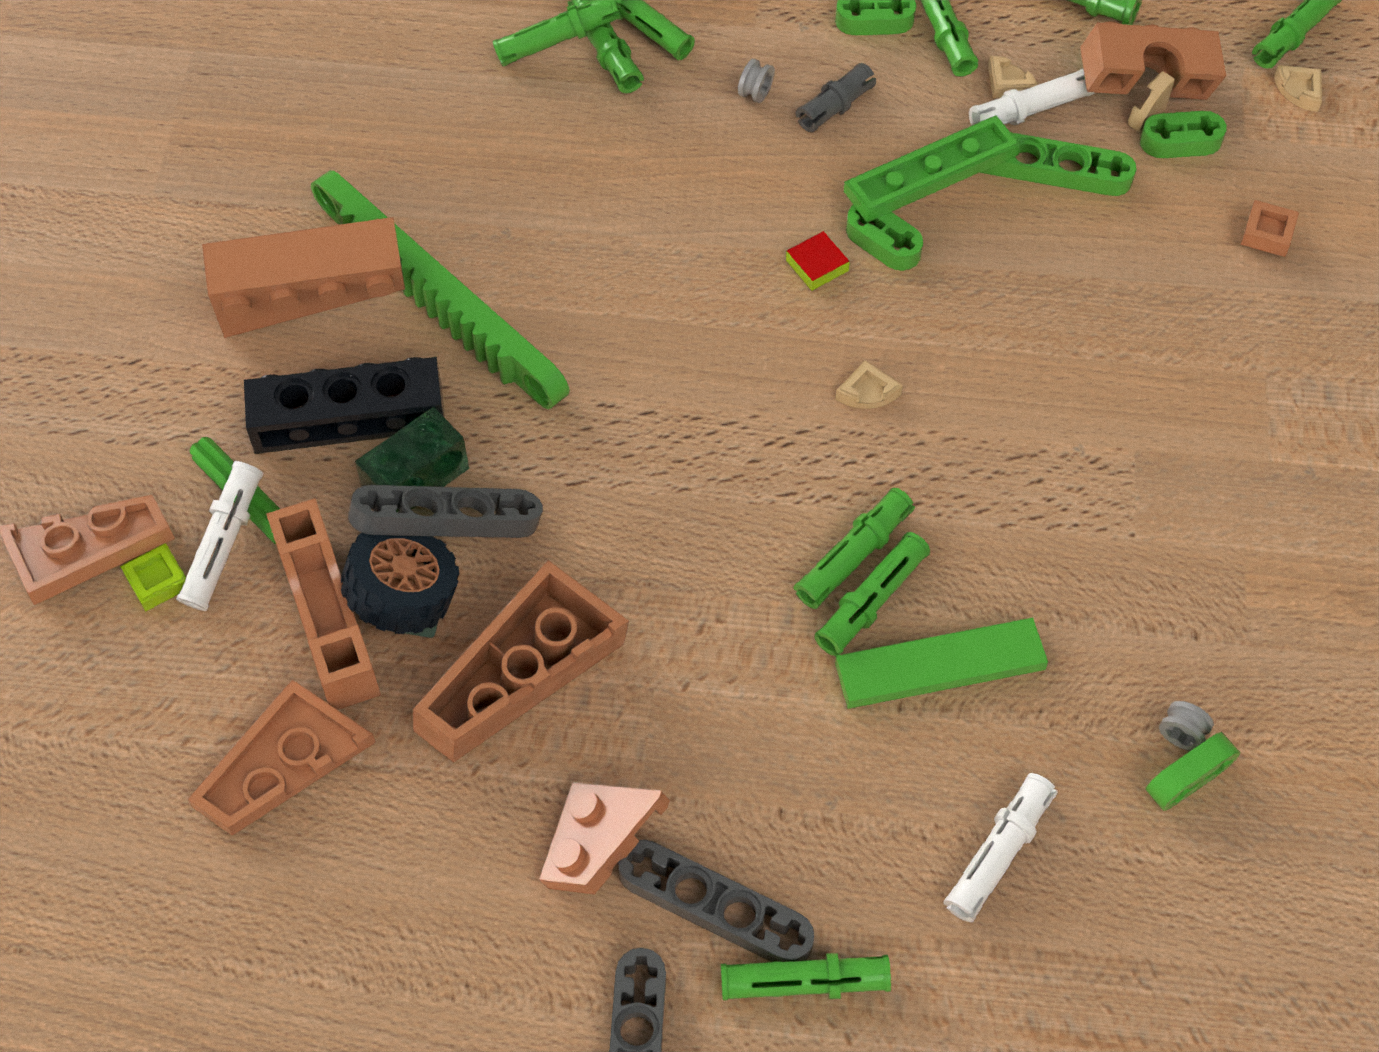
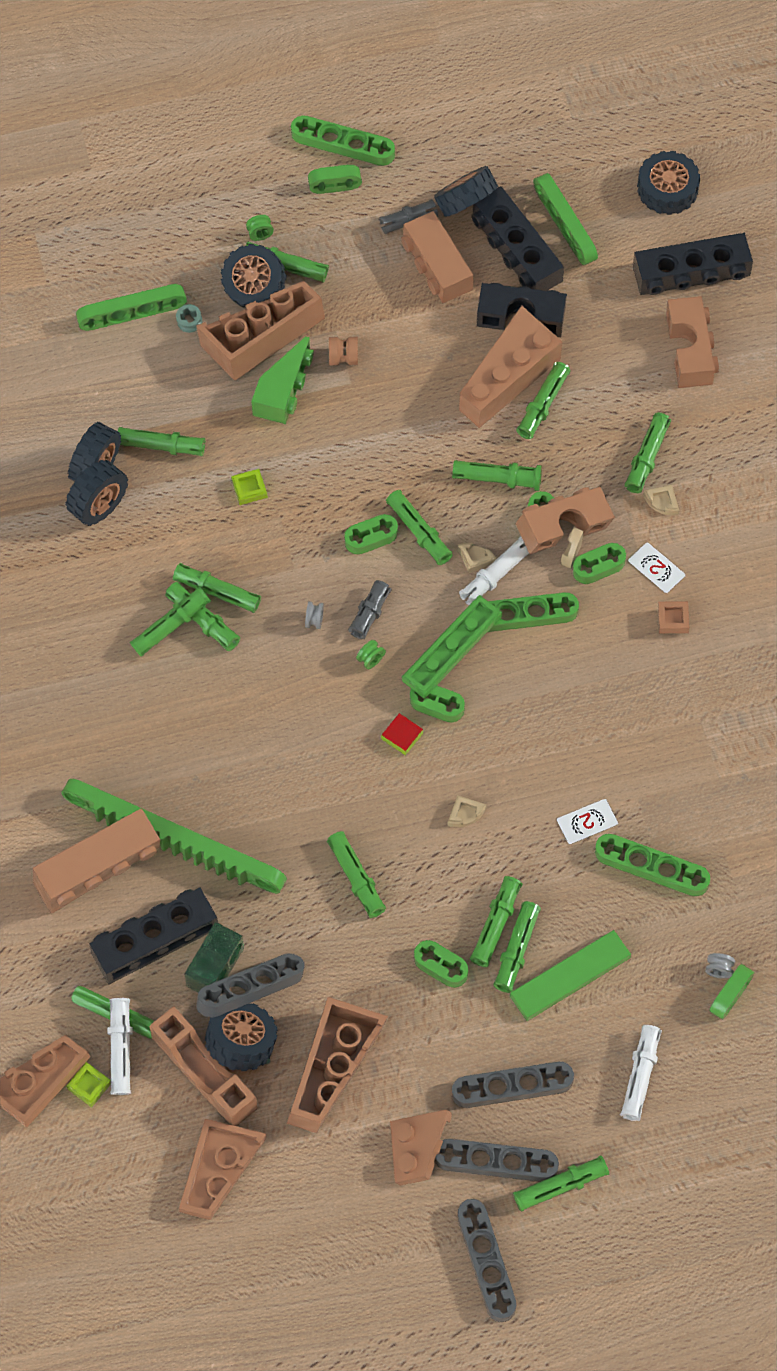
camera: 20 degrees left, 5 degrees up
(675, 433) = (362, 885): none -> bright green pin
(755, 574) = (437, 969): none -> bright green beam
(789, 785) = (511, 1079): none -> dark grey beam
(814, 148) = (370, 654): none -> bright green bush
(1046, 457) = (587, 821): none -> white sticker
(1120, 552) = (650, 869): none -> bright green beam
(1264, 165) = (656, 567): none -> white sticker

